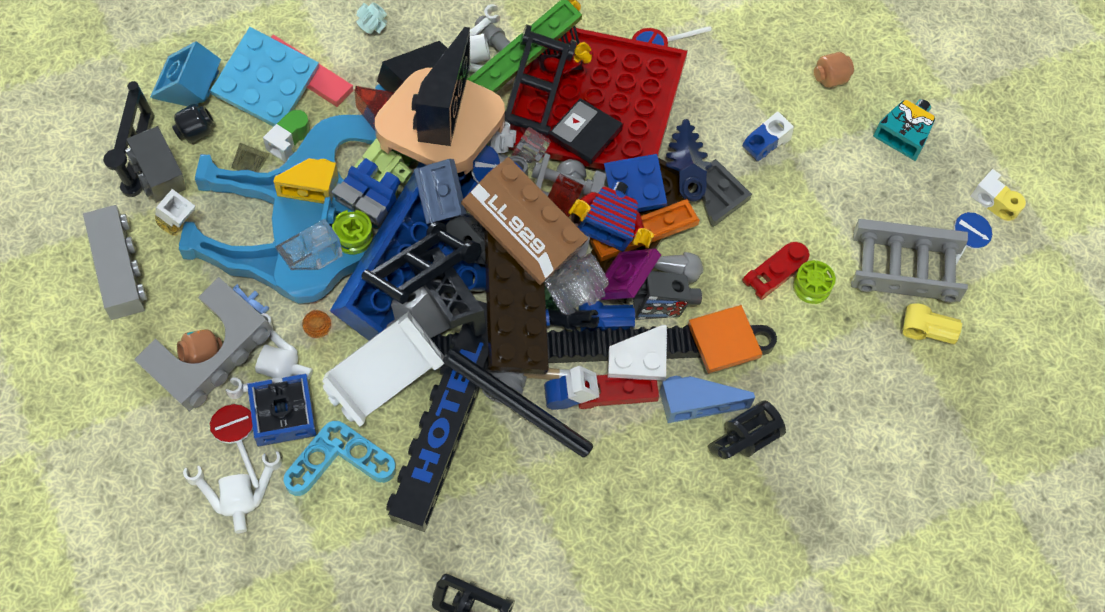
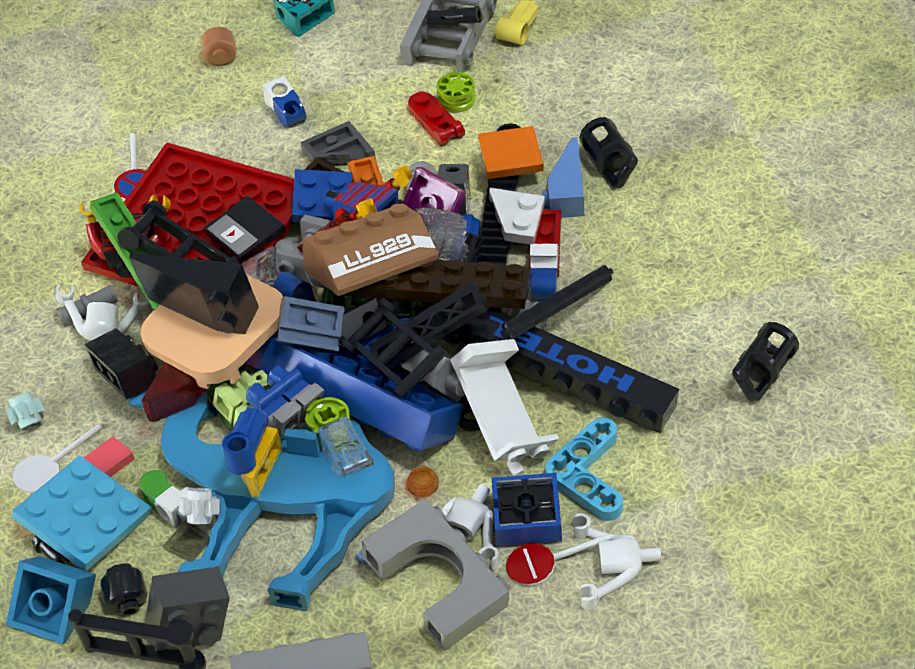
camera: 70 degrees left, 15 degrees down
(173, 212) = (256, 596): white leg -> none
(198, 346) = (435, 581): nougat head -> none
(265, 154) = (199, 505): none -> white gear
(300, 163) = (244, 440): none -> blue piece
(321, 43) = (39, 469): none -> white piece
(689, 161) = (330, 153): dark blue plant -> none
(906, 259) = (438, 17): none -> black pin

